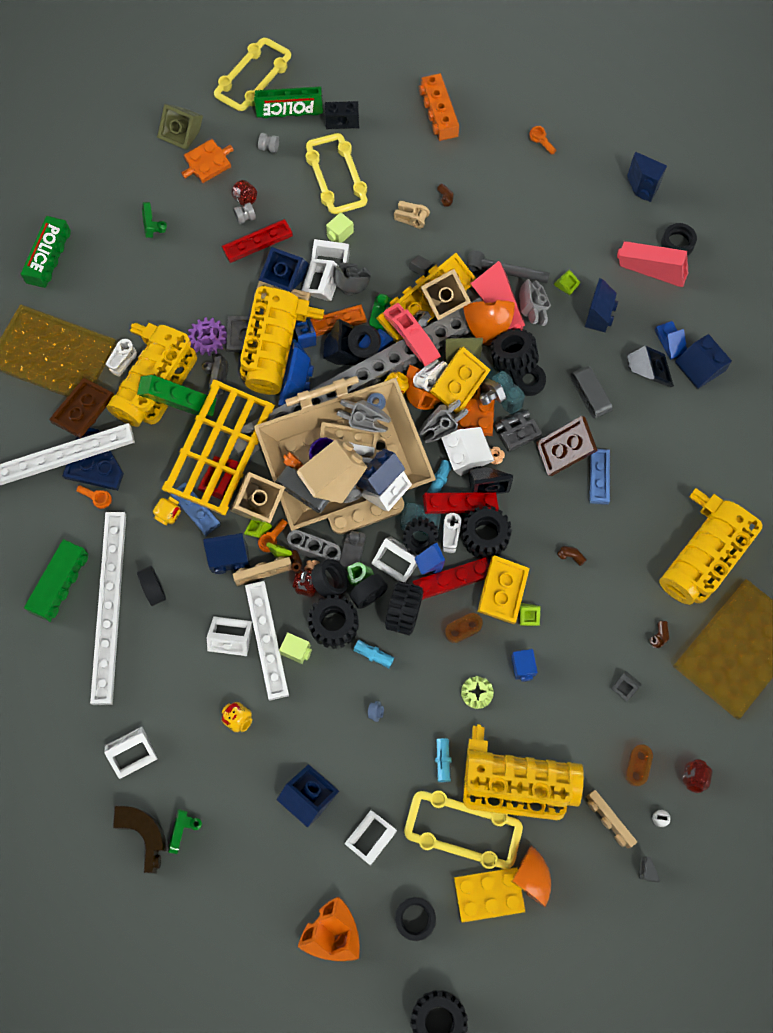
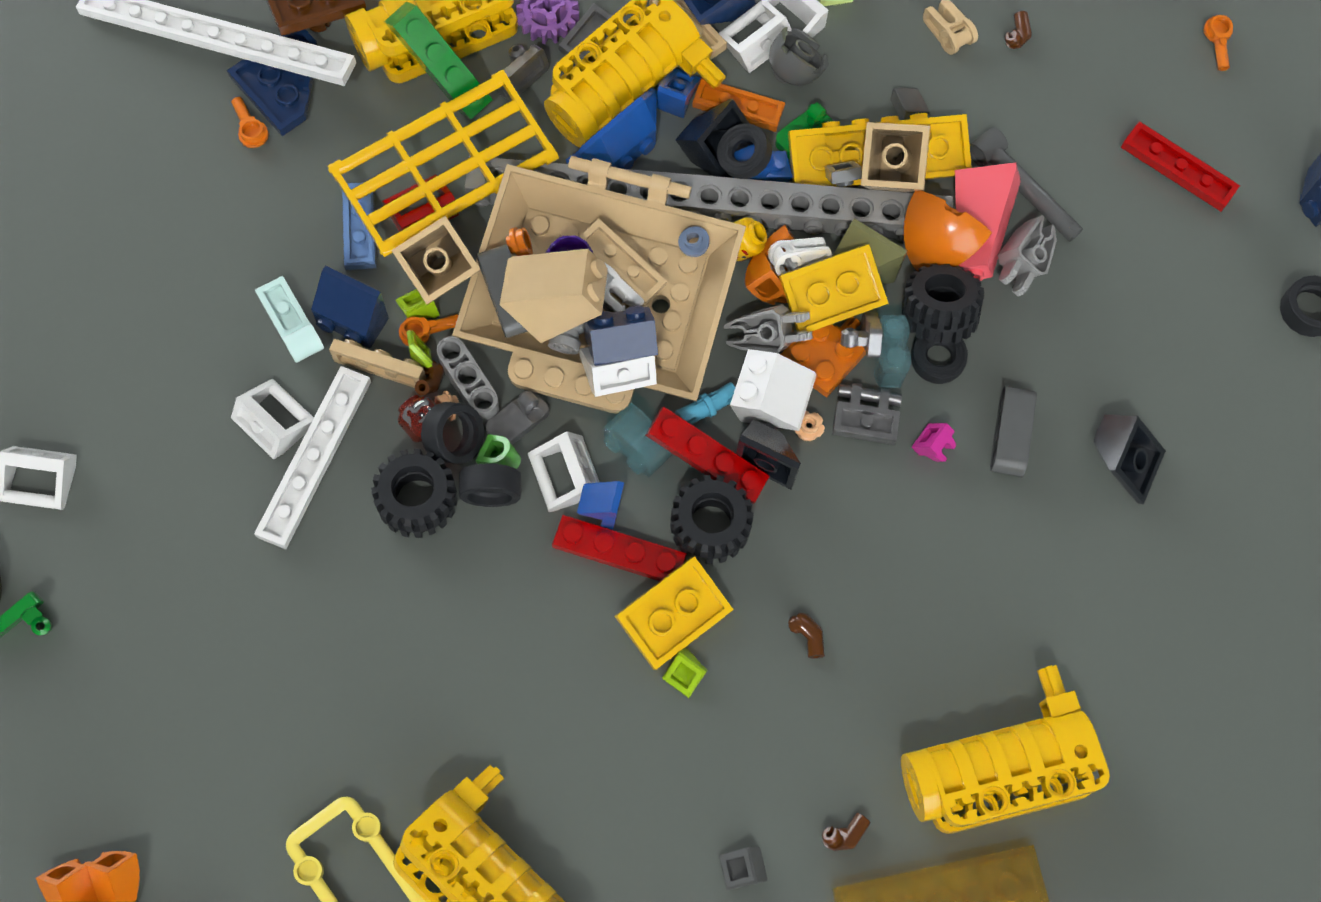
camera: 30 degrees right, 0 degrees up
(56, 581) = (116, 197): green brick -> none
(108, 609) = (151, 277): white plate -> none
(151, 585) = (222, 283): black tyre -> none
(167, 511) = (319, 202): yellow head -> none
(199, 580) = (289, 319): none -> light aqua plate
(236, 717) = (196, 527): yellow head -> none
(295, 648) = (340, 493): yellowish green brick -> none
(307, 795) = (205, 694): dark blue slope -> none
(364, 416) = (661, 249): light grey hinge -> none
(373, 654) = (436, 574): medium azure pin -> none
(375, 711) = (377, 650): sand blue plate -> none
(381, 843) = (244, 828): white tile -> none
(404, 608) = (516, 540): black tyre -> none
(412, 333) = (815, 183): coral slope -> none
(420, 525) = (627, 448): black tyre -> none
(443, 760) = (414, 780): medium azure pin -> none
(451, 533) = (661, 489): white piece -> none
(462, 627) = (581, 624): clear orange plate -> none
(471, 699) = (534, 740): yellowish green gear -> none
(524, 665) = (622, 734): blue brick -> none
(558, 420) = (933, 440): none -> dark pink tile
(566, 446) = (914, 479): plate -> none
(567, 282) = (1100, 260): lime slope -> none
(570, 213) = (1180, 166): none -> red plate
(600, 477) = (934, 555): medium blue tile -> none
(601, 307) = (1119, 323): dark blue slope -> none
(655, 261) = (1252, 313): coral slope -> none
(672, 339) = (1191, 438): blue slope -> none
(703, 361) = (1213, 498): dark blue slope -> none

